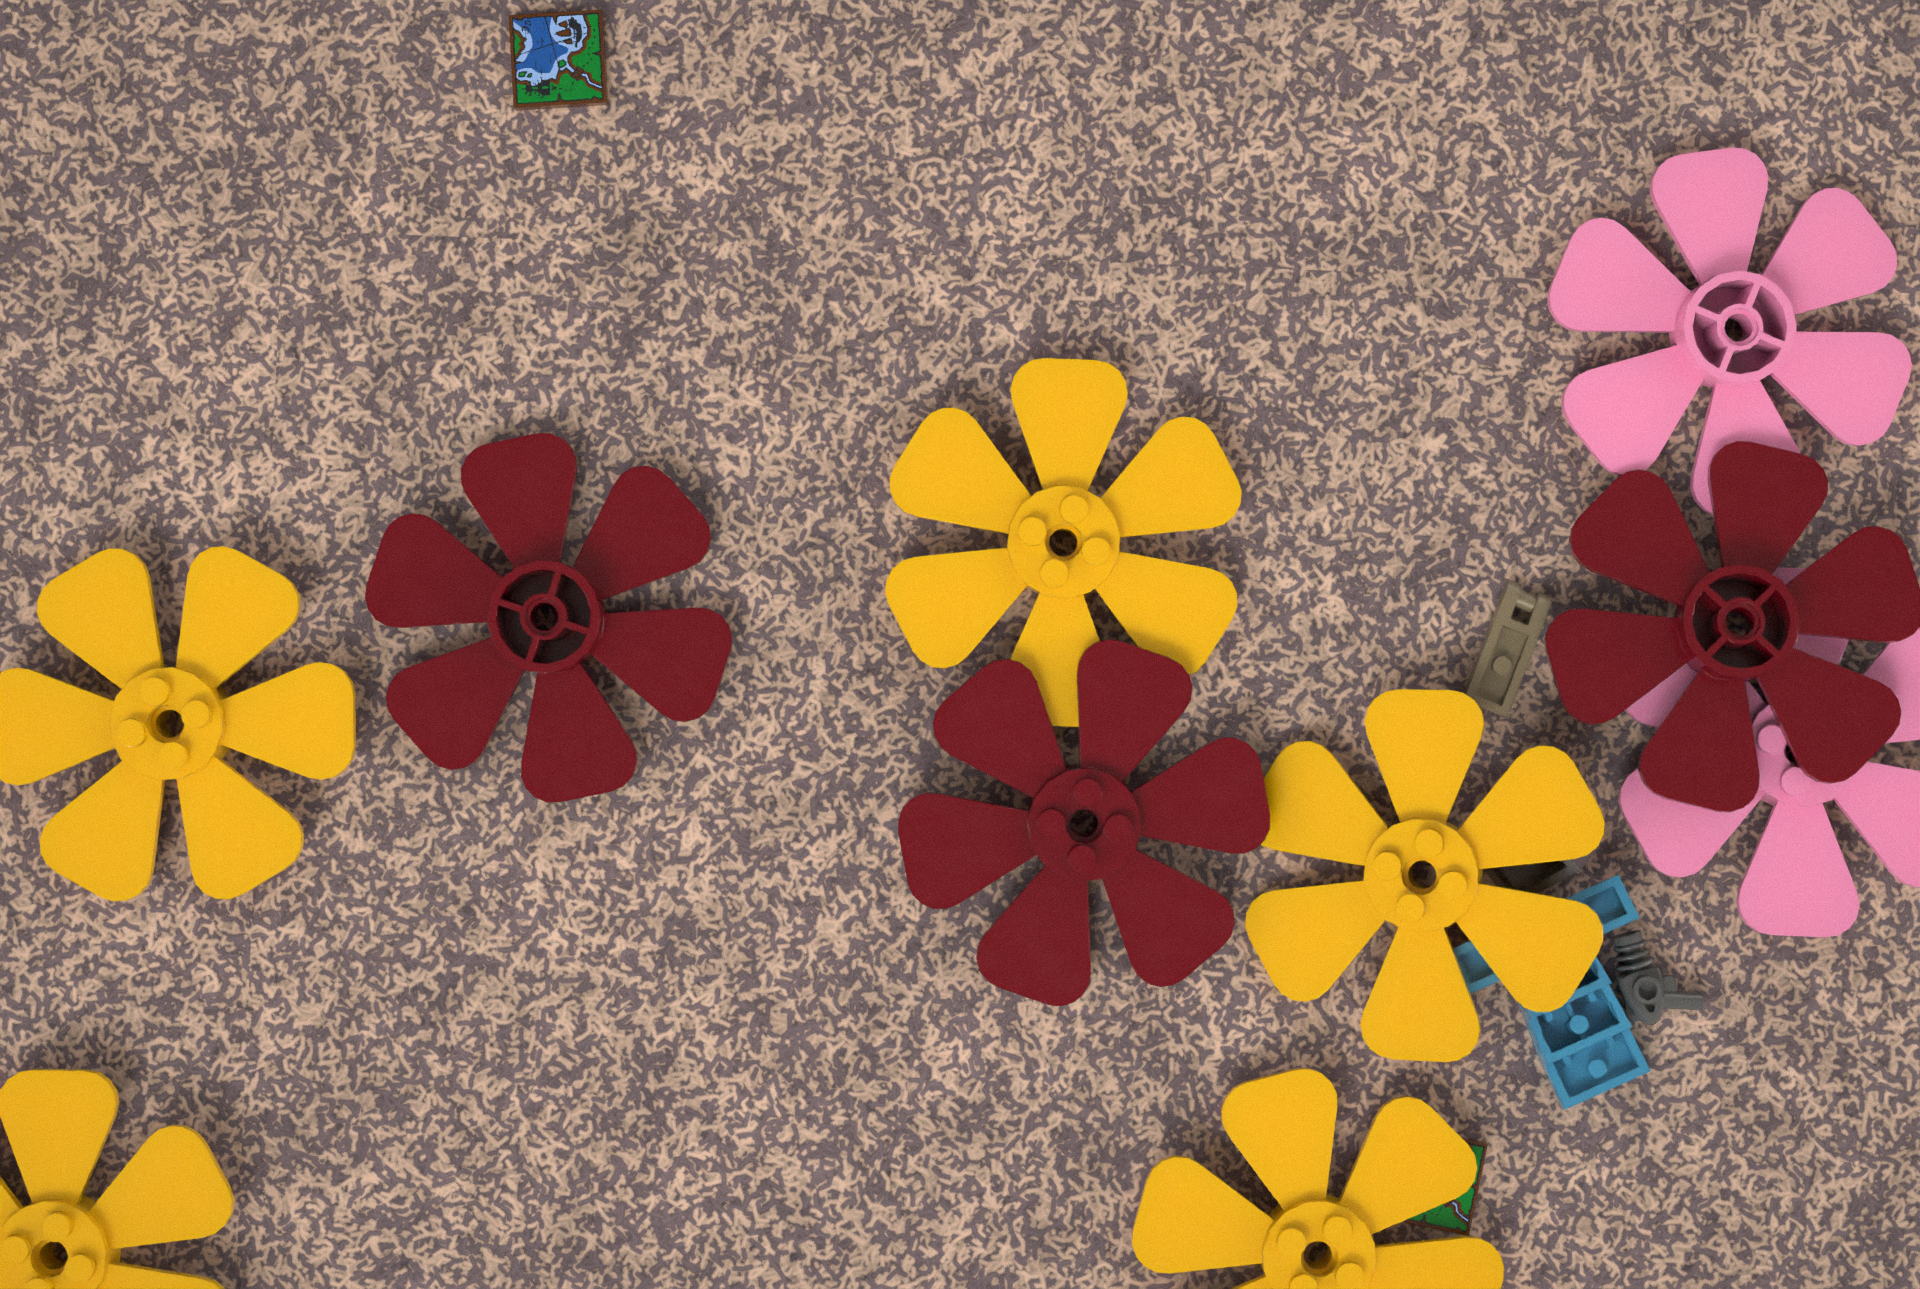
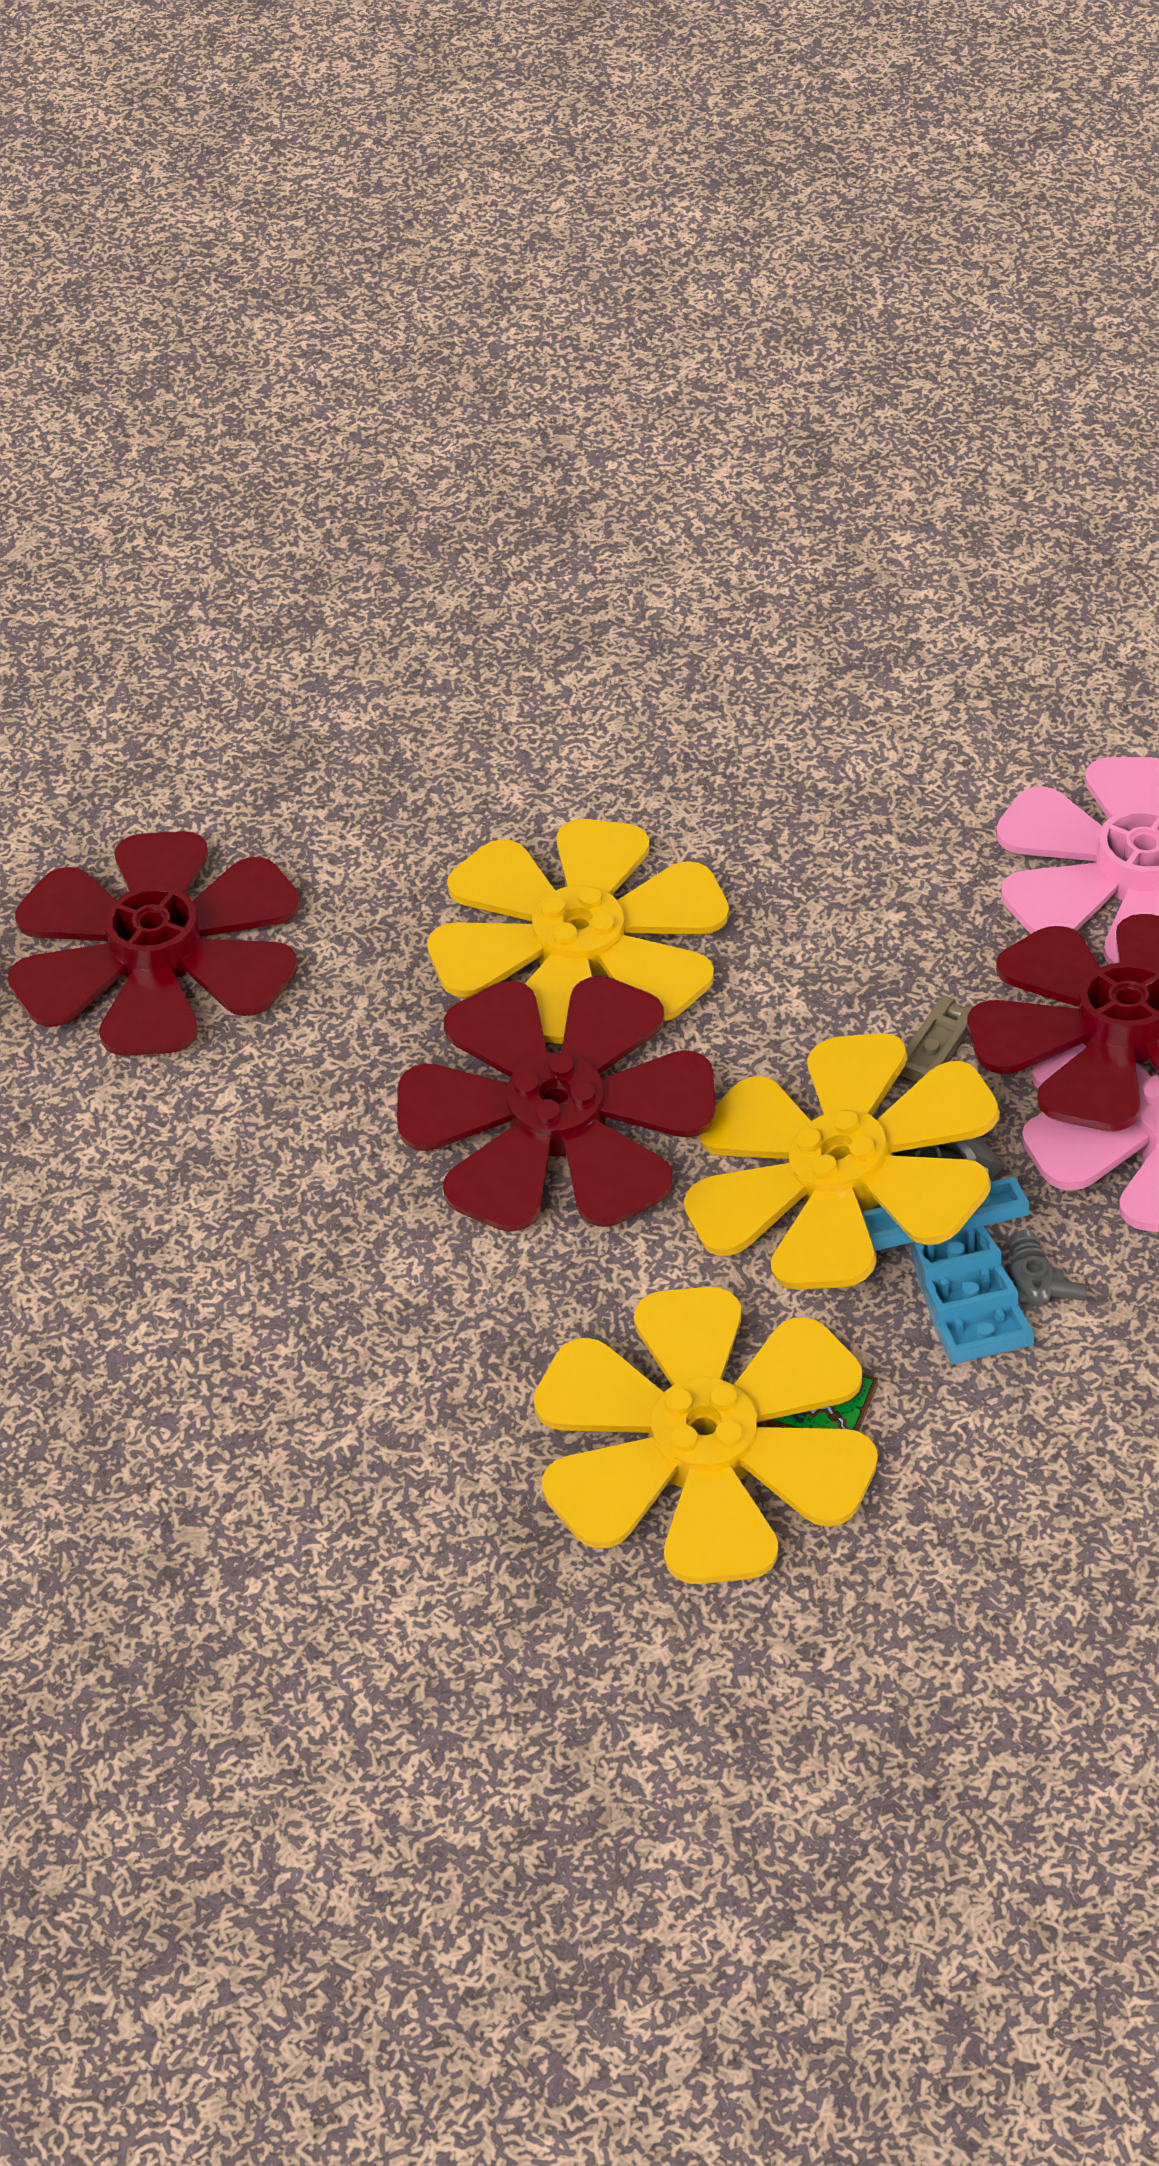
camera: 15 degrees right, 40 degrees down
(558, 60) = (267, 648): tile -> none

